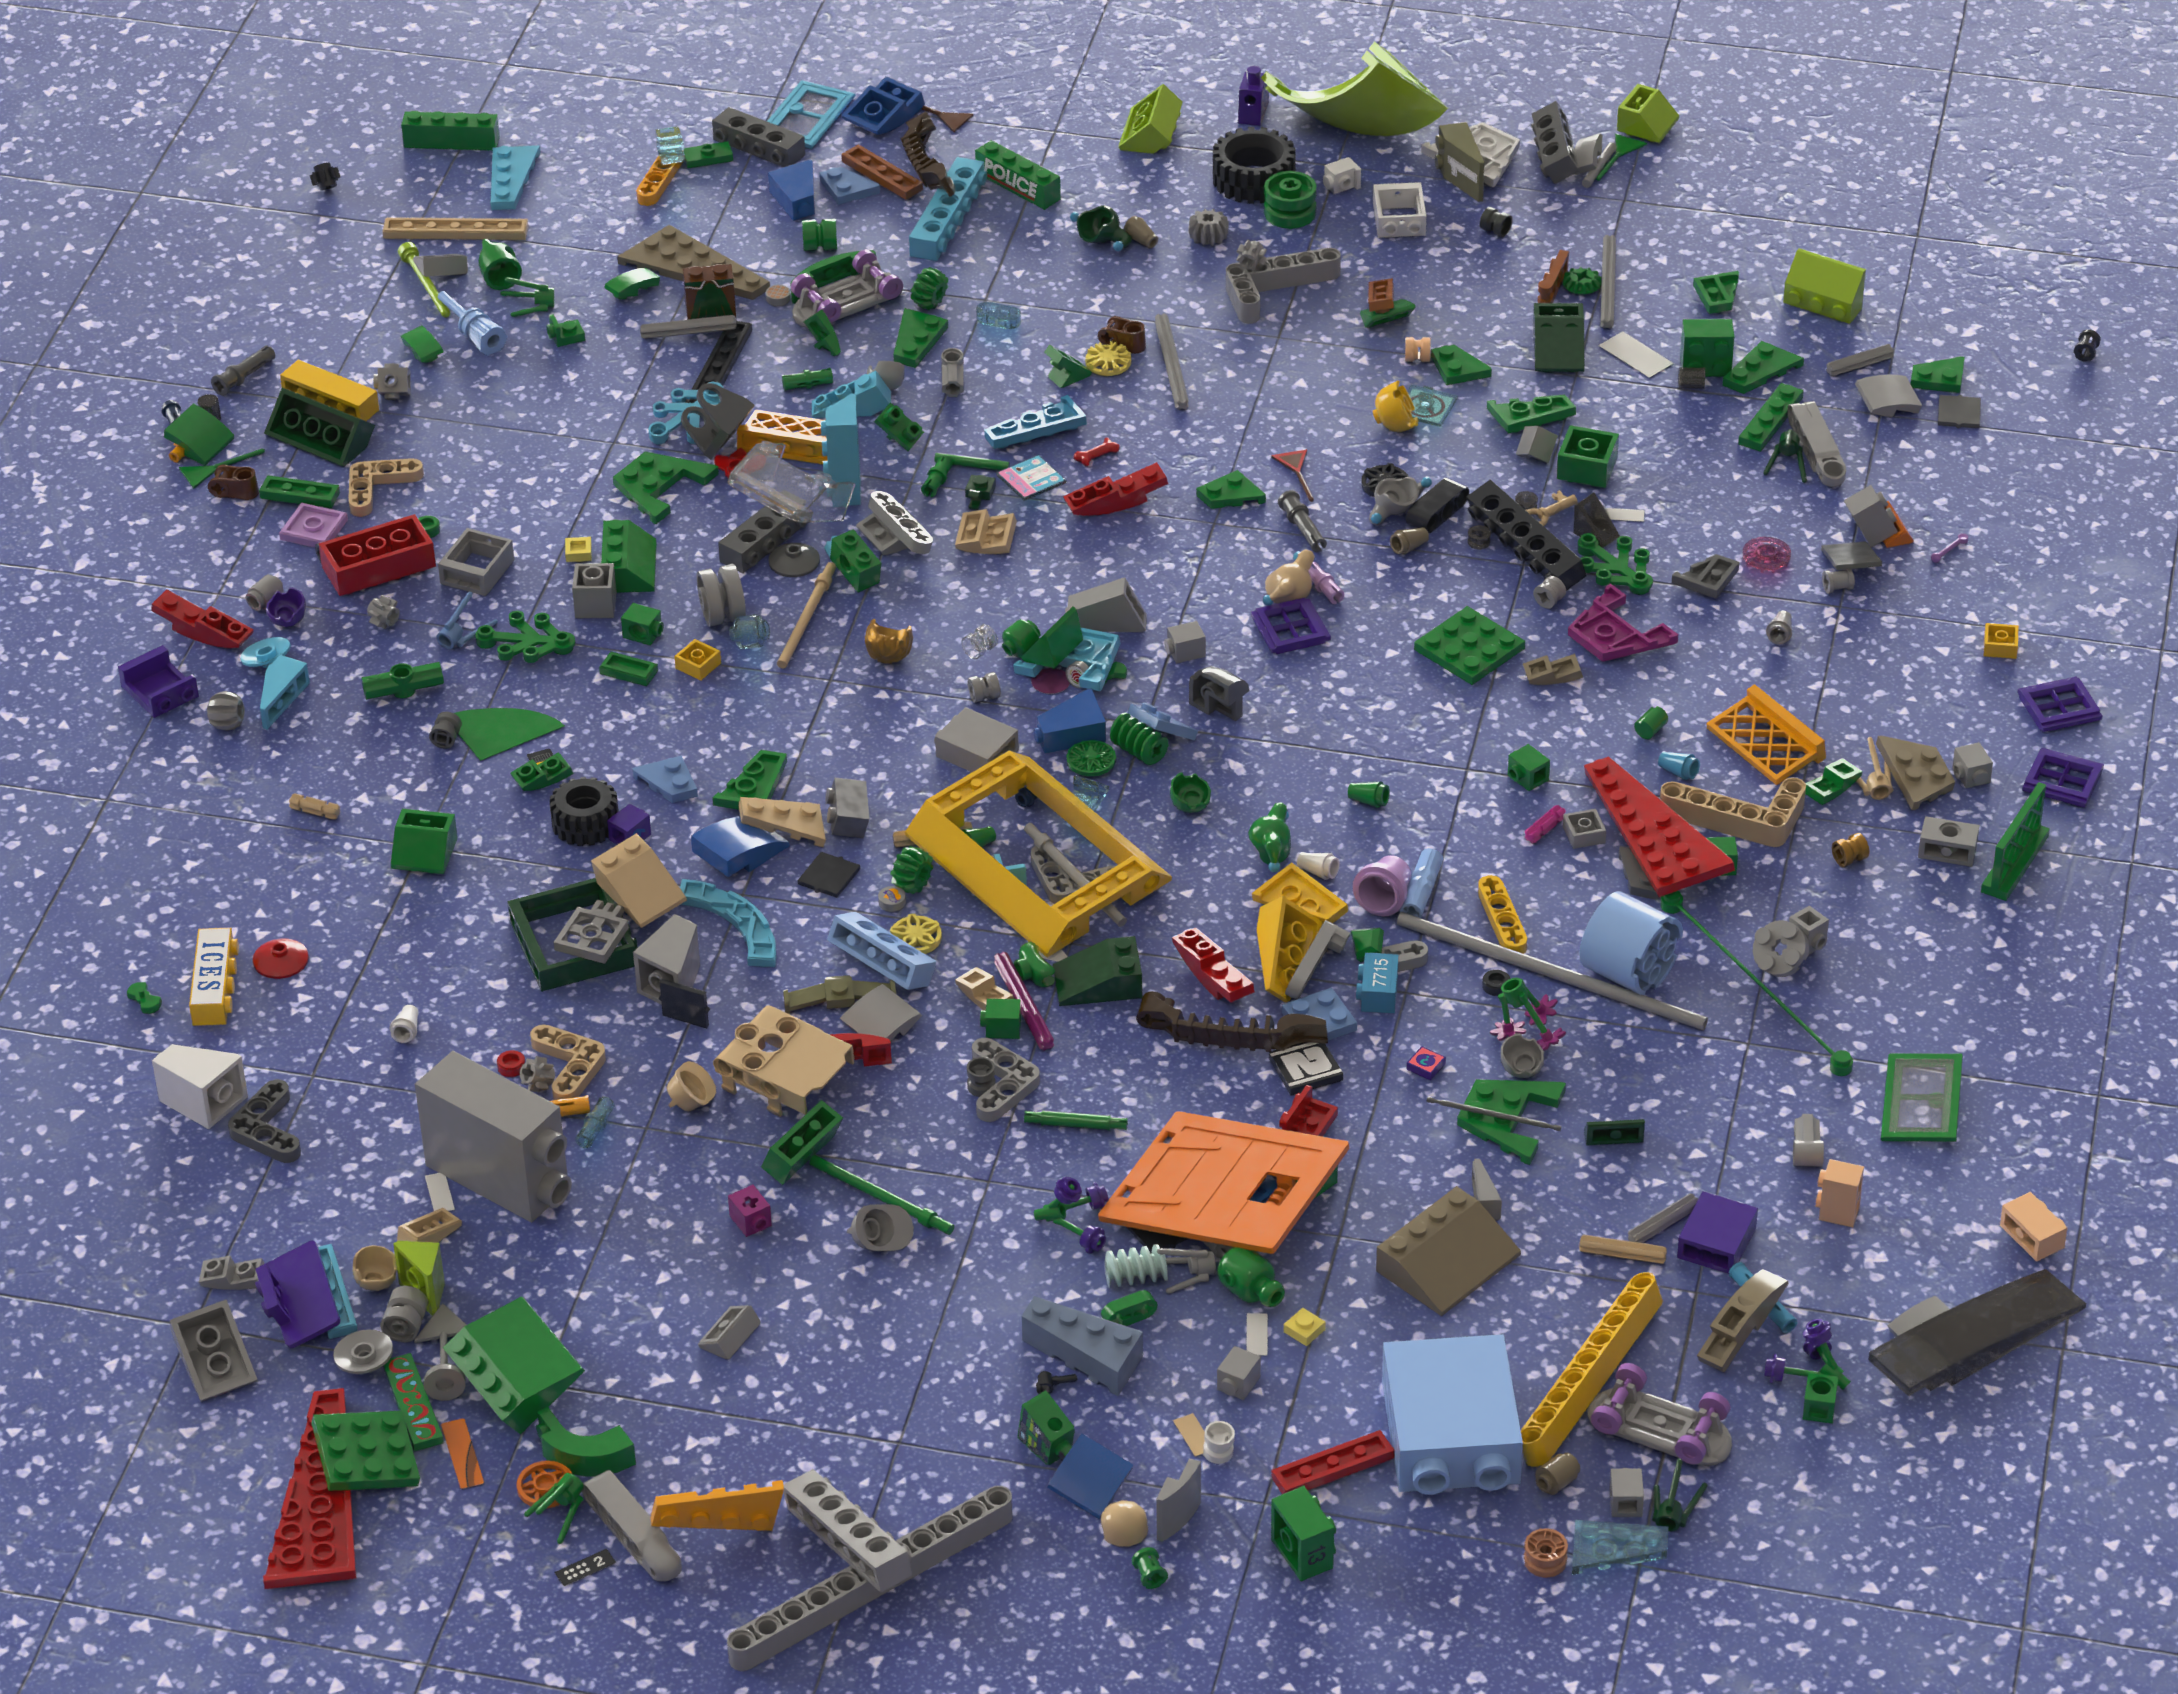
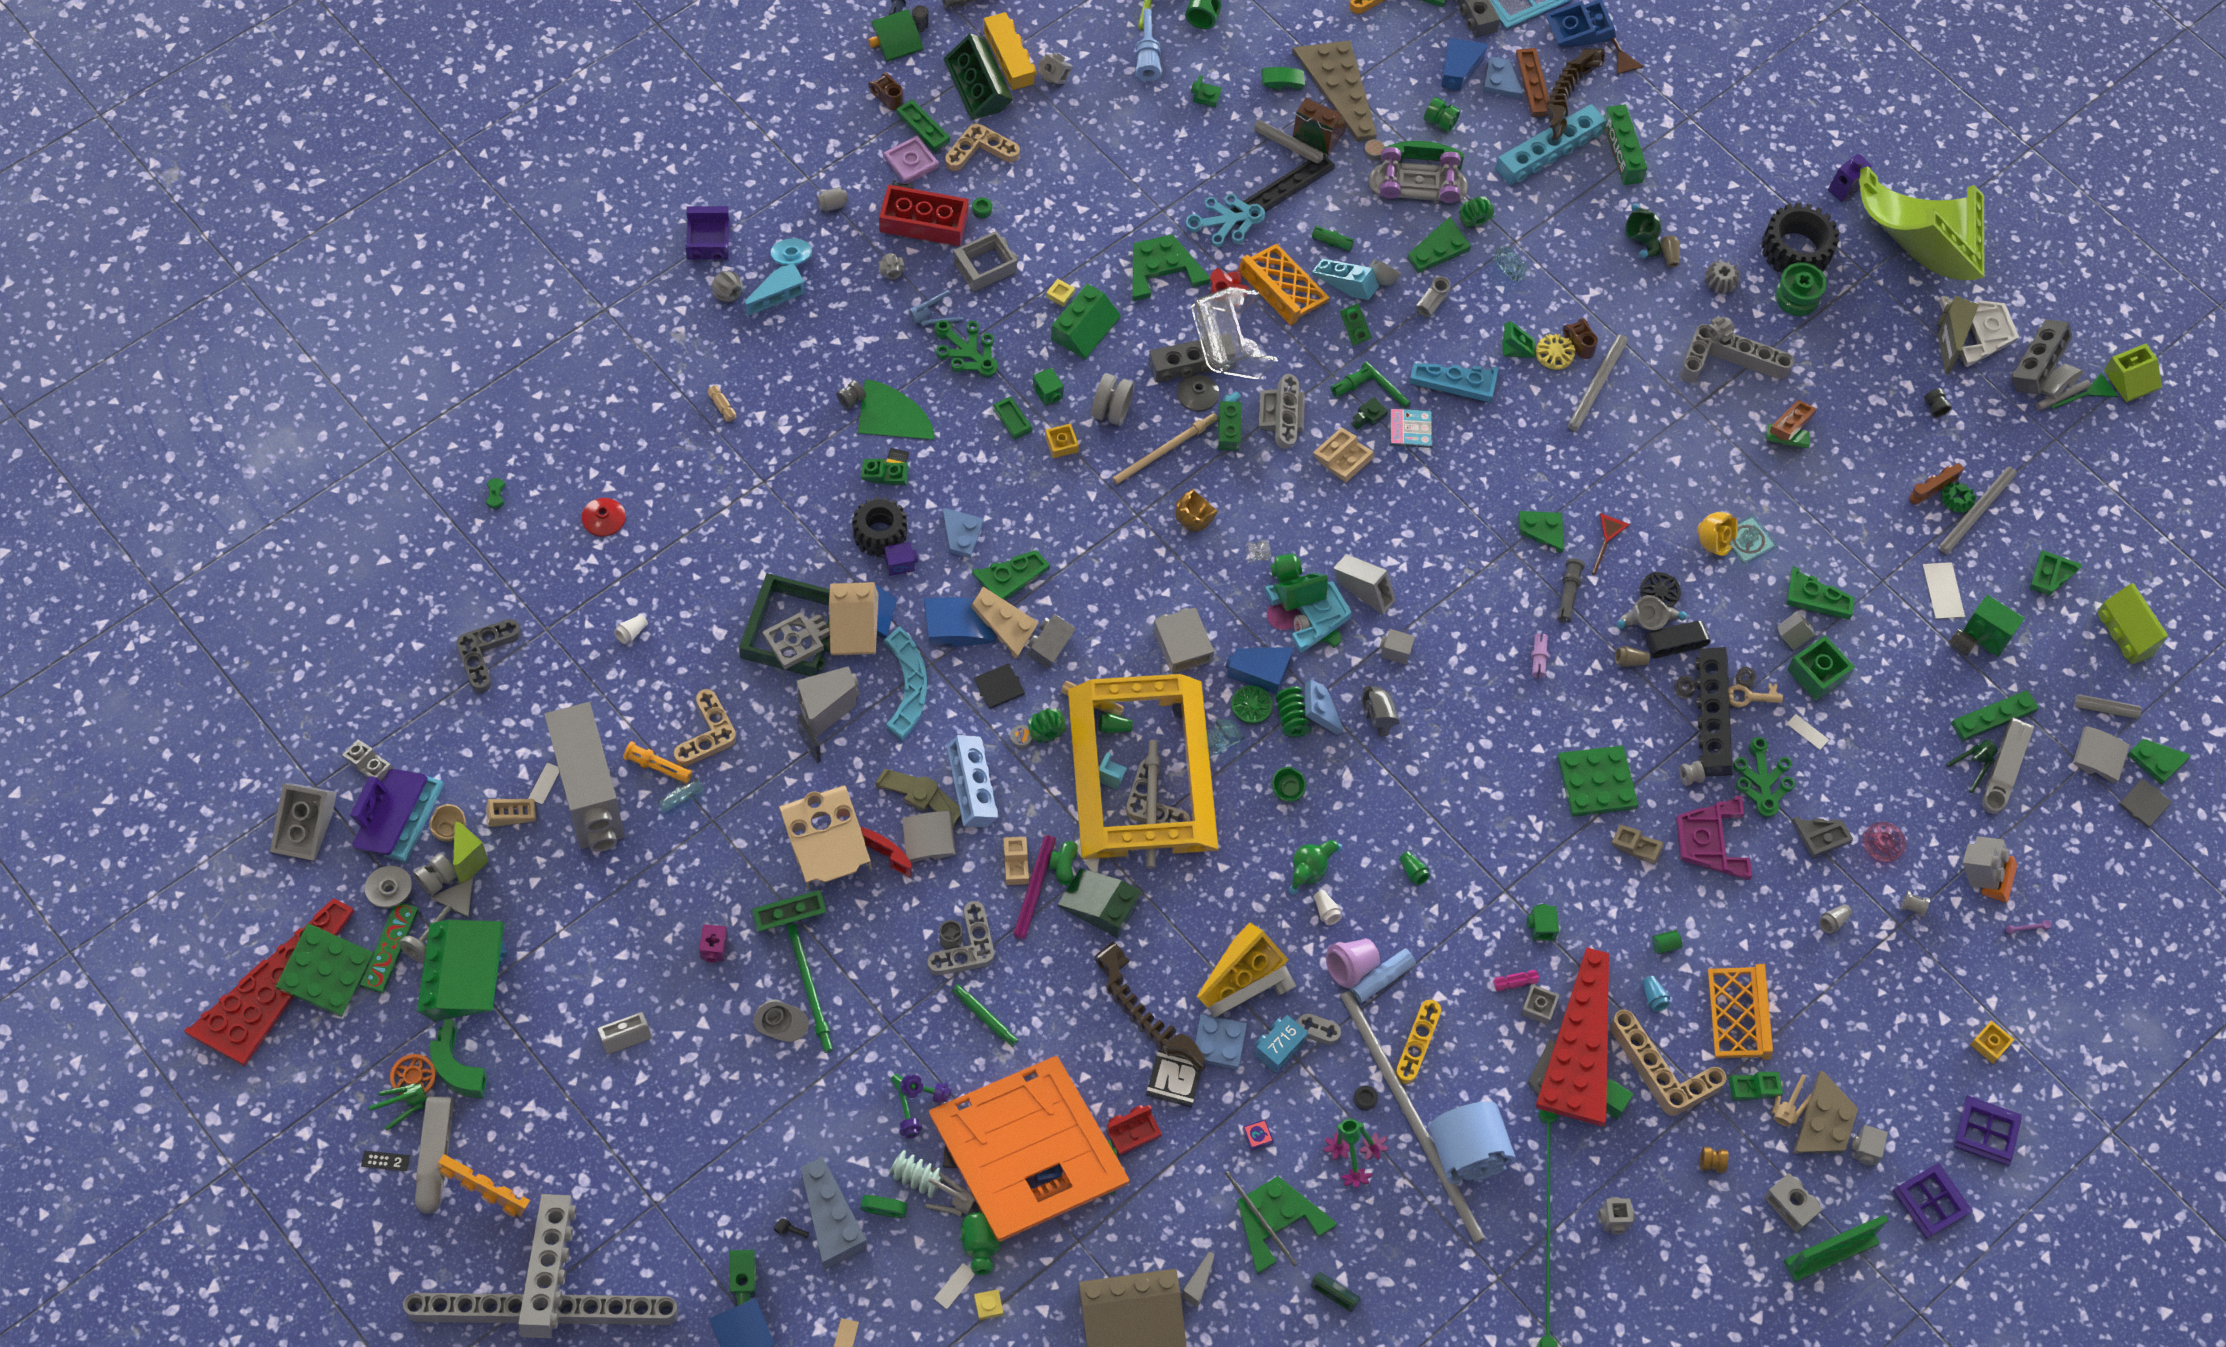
camera: 30 degrees right, 20 degrees up
(197, 474) = (876, 66): green piece -> none
(200, 1082) = (462, 595): white slope -> none
(202, 625) = (772, 199): red slope -> none
(213, 976) = (545, 506): brick -> none
(286, 608) = (833, 222): dark purple hair -> none
(402, 680) = (866, 336): green piece -> none
(423, 344) = (1101, 45): green slope -> none
(423, 841) = (759, 483): green slope -> none
(462, 1453) = (388, 1010): orange sticker -> none
(510, 1063) = (671, 707): red tile -> none
(537, 1074) = (674, 731): light grey gear -> none
(543, 296) = (1213, 53): green plant -> none
(594, 590) = (1037, 338): light grey head -> none
(691, 1087) = (760, 811): tan piece -> none
(719, 420) = (1231, 245): dark grey hose -> none
(749, 631) = (1112, 440): clear light blue head -> none
(823, 332) = (1375, 199): green slope -> none
(842, 444) = (1286, 329): medium azure slope -> none
(918, 934) = (1011, 779): light yellow wheel -> none
(984, 687) = (1223, 592): light grey wheel -> none
(1002, 1018) = (1005, 894): green brick -> none
(1086, 456) = (1481, 431): red piece -> none
(1110, 497) = (1453, 479): red slope -> none
(1151, 122) = (1760, 154): lime slope -> none
(1210, 967) = (1179, 949): red slope -> none
(1238, 1373) = (908, 1315): light grey brick -> none
(1290, 580) = (1513, 640): tan piece -> none
(1302, 891) = (1292, 926): yellow wing -> none
(1311, 619) = (1504, 683): dark purple piece -> none
(1342, 175) = (1858, 289): white brick -> none
(1367, 941) = (1303, 1001): green piece -> none
(1409, 197) = (1875, 329): white window -> none
(1411, 349) = (1781, 486): light nougat wheel -> none
(1458, 365) = (1801, 517): green wing -> none
(1521, 1056) = (1322, 1181): light grey hair -> none
(1558, 337) = (1892, 543): dark green slope -> none
(1594, 519) = (1779, 731): clear smoke slope -> none
(1759, 365) = (2026, 662): green wing -> none
(1767, 940) = (1596, 1214): light grey plate -> none
(1851, 555) = (1942, 888): dark grey piece -> none

